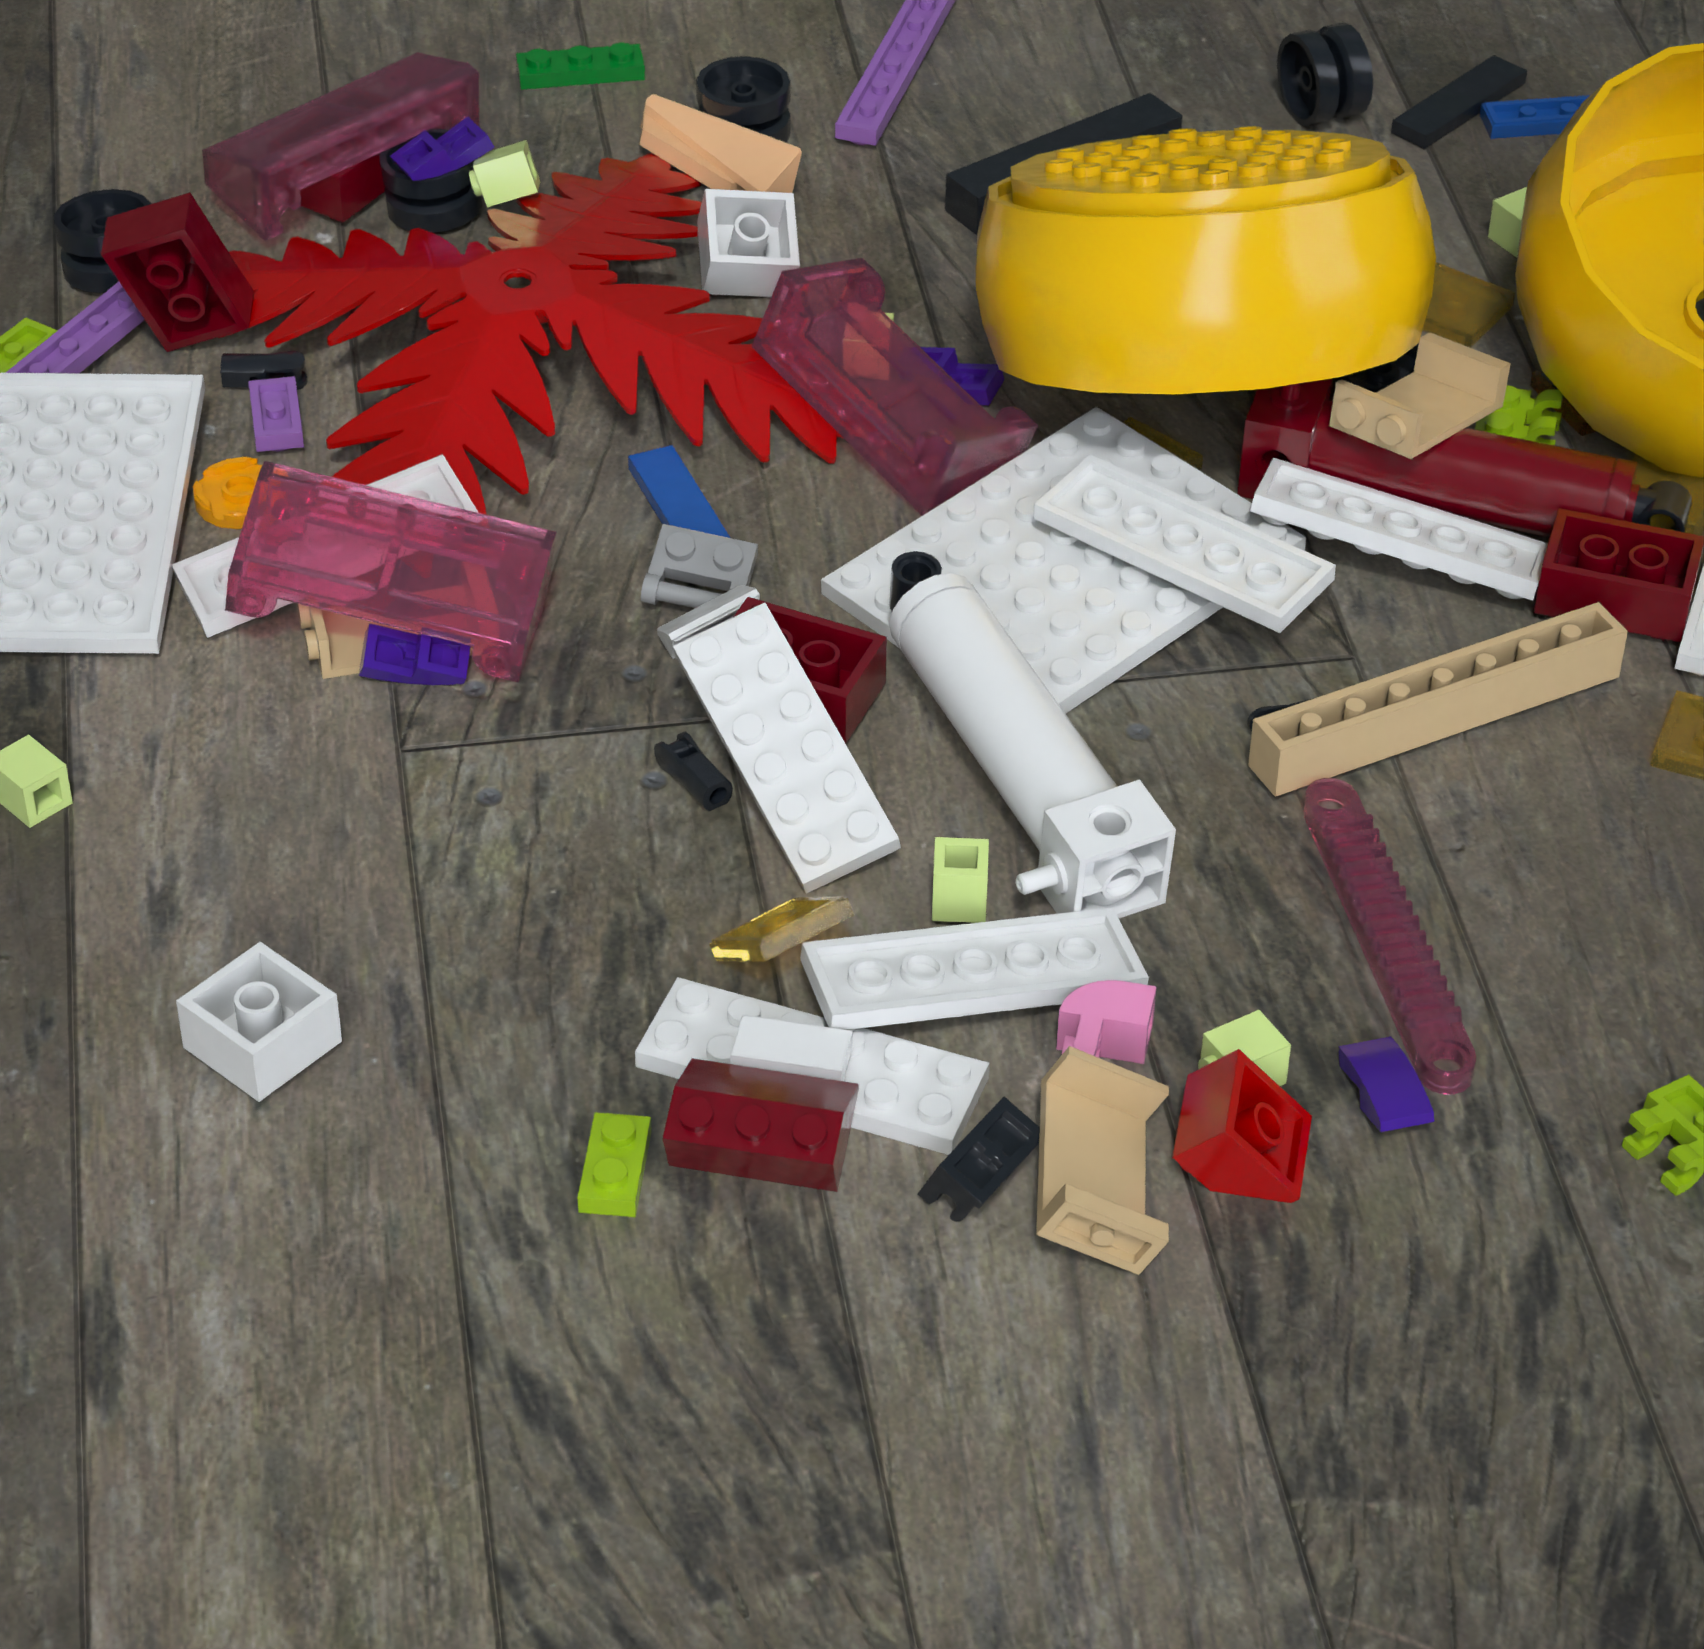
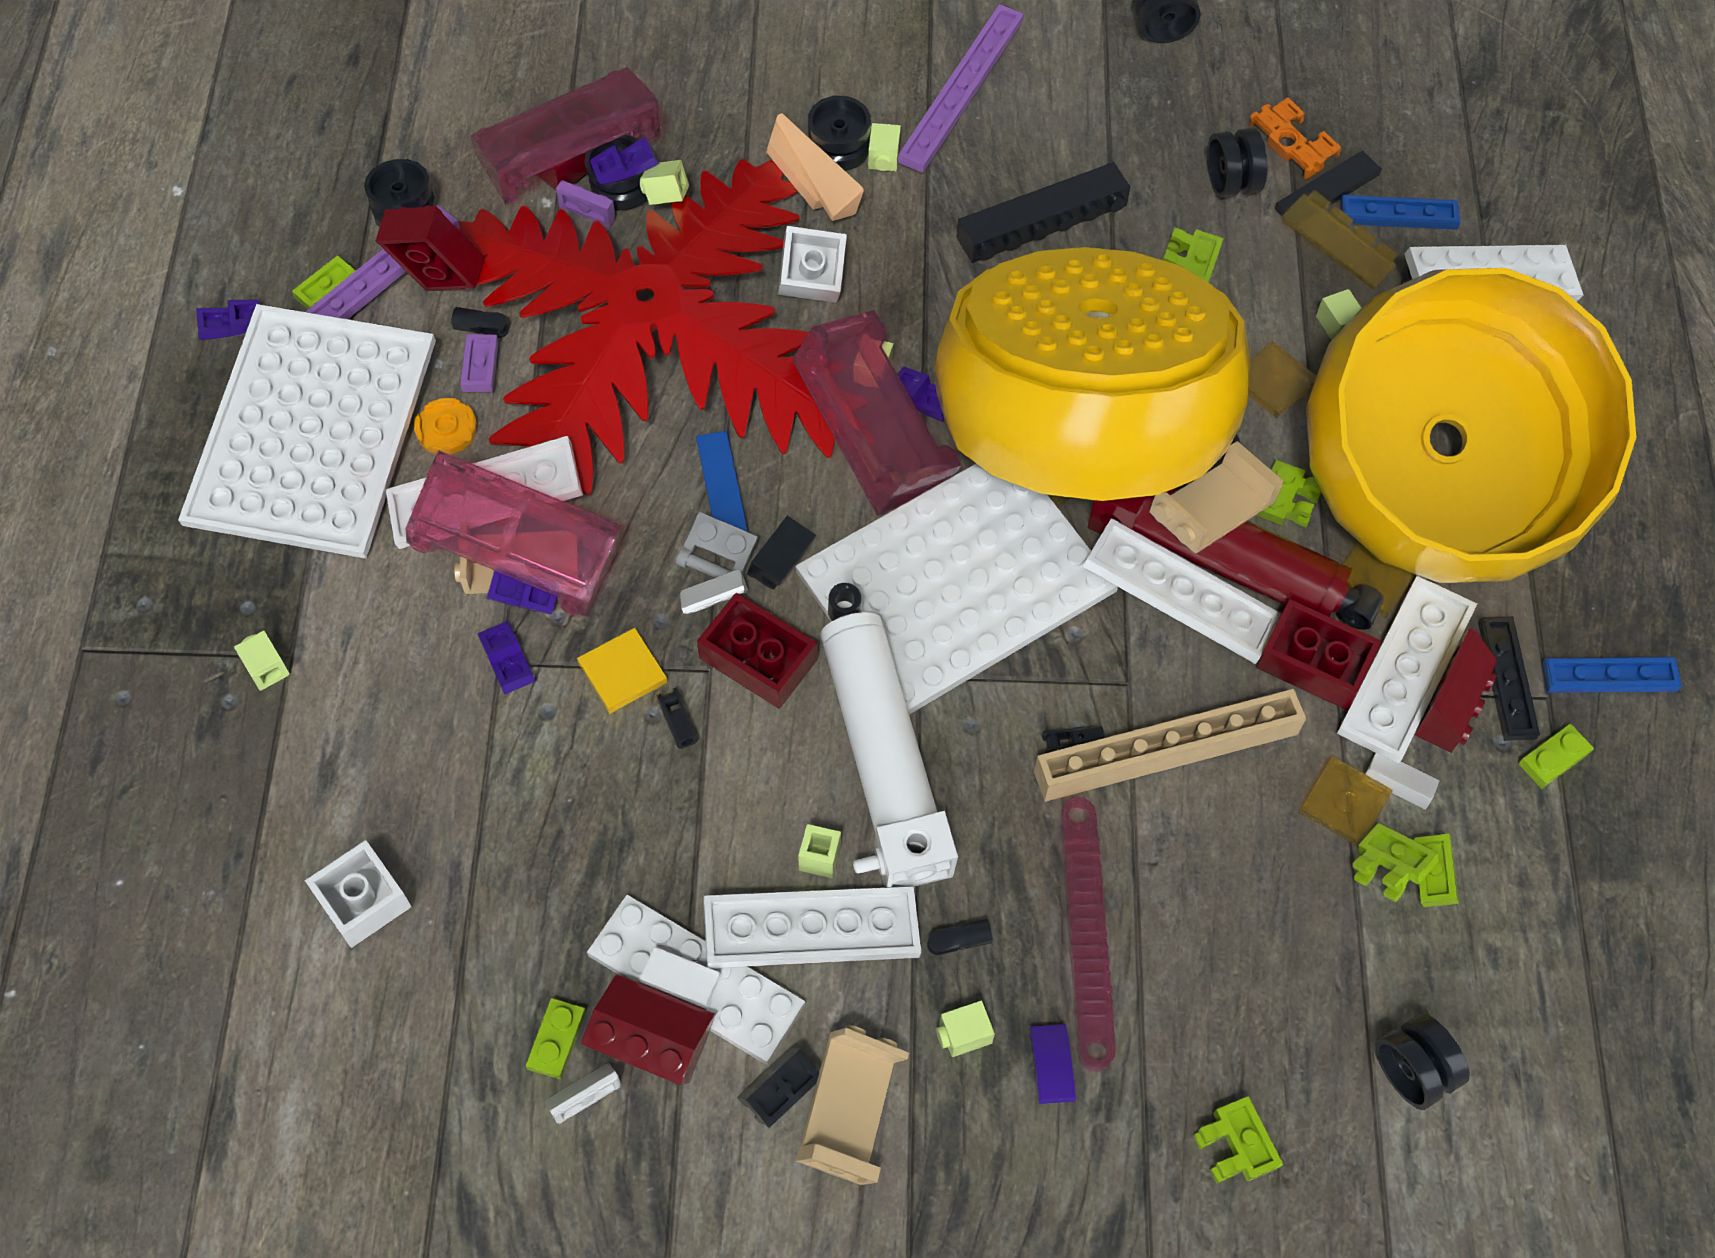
camera: 10 degrees right, 20 degrees up
(385, 219) = (586, 203): none -> medium lavender plate
(407, 737) = (506, 657): none -> dark purple slope
(580, 66) = (744, 71): green plate -> none
(592, 730) = (622, 670): none -> yellow tile
(679, 1220) = (583, 1093): none -> white slope
(781, 928) = (697, 873): clear yellow tile -> none
(786, 748) = (732, 723): white plate -> none
(796, 561) = (780, 553): none -> black hinge
(813, 119) = (884, 147): none -> yellowish green brick
(1108, 1020) = (882, 980): bright pink brick -> none
(1185, 542) = (1033, 587): white plate -> none
(1200, 961) = (960, 937): none -> black bar
(1242, 1131) = (950, 1091): red slope -> none
(1422, 69) = (1308, 156): none -> orange piece
(1479, 139) = (1346, 246): none -> clear yellow windscreen

